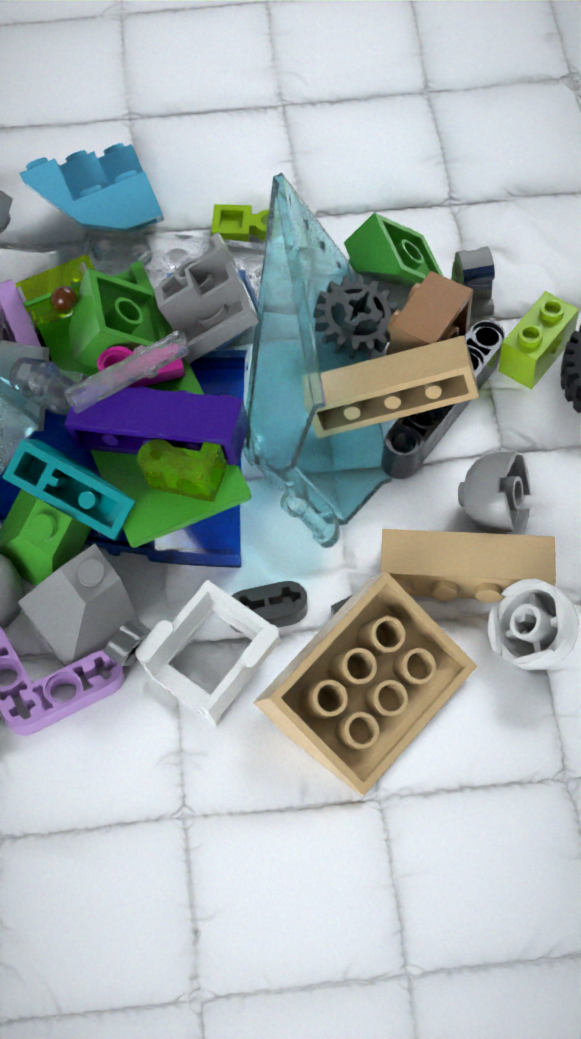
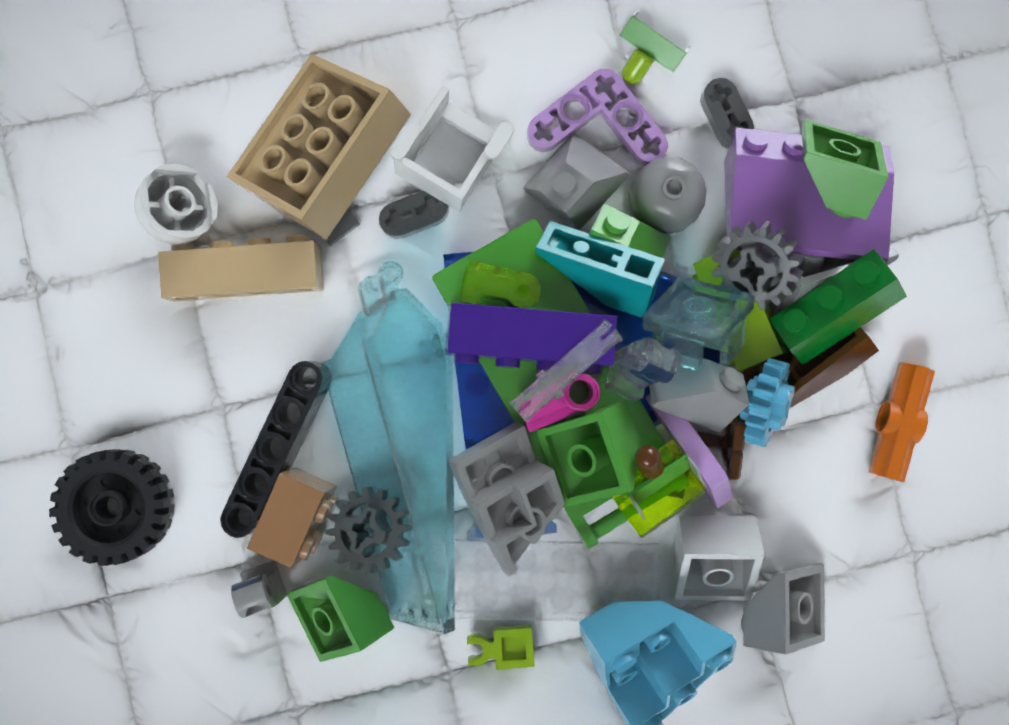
camera: 170 degrees right, 30 degrees up
(125, 642) = (522, 144): dark grey beam -> none
(396, 386) = (310, 433): tan brick -> none
(495, 493) = (220, 344): light grey cylinder -> none
(538, 340) = (189, 531): lime brick -> none

